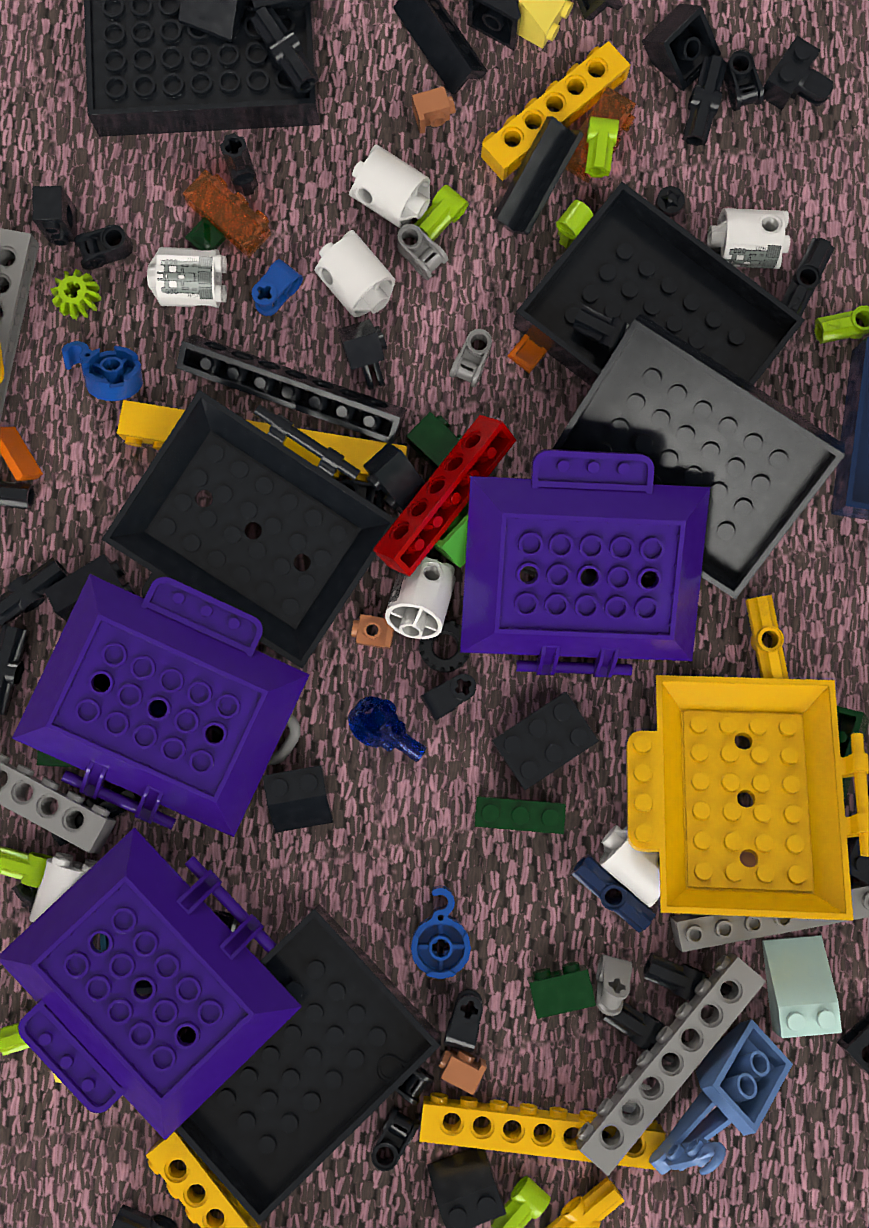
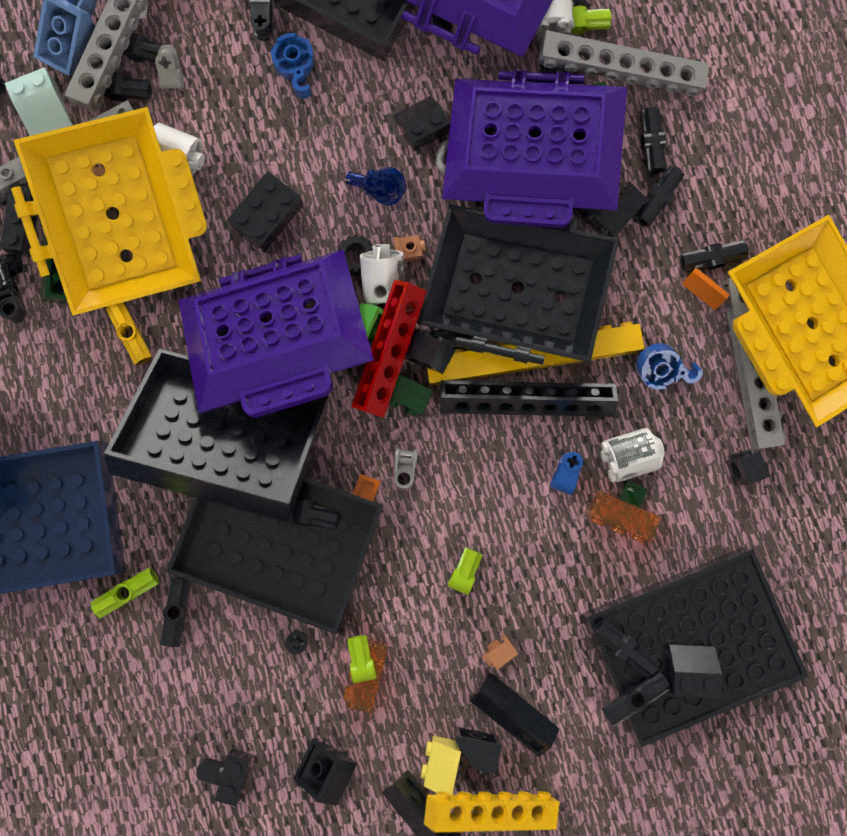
camera: 160 degrees right, 0 degrees up
(65, 296) = (717, 420): lime gear -> none
(100, 246) = (706, 458): black piece -> none
(239, 164) = (626, 548): black piece -> none
(355, 275) = (510, 497): white cylinder -> none
(364, 346) = (486, 445): black brick -> none
(390, 187) = (508, 574): white cylinder -> none
(424, 254) = (469, 535): light grey piece -> none
(444, 697) = (344, 220): black piece -> none
(519, 814) = (267, 157): dark green brick -> none
(537, 176) = (401, 621): black panel -> none
(561, 990) = (203, 54): dark green brick -> none
(573, 222) = (362, 592): lime piece -> none
(602, 60) = (381, 737): yellow brick -> none
(626, 905) = (186, 123): dark blue piece -> none
(704, 100) = (293, 732): black piece -> none
(743, 86) = (267, 756): black piece -> none
(750, 237) = (226, 627): white cylinder -> none

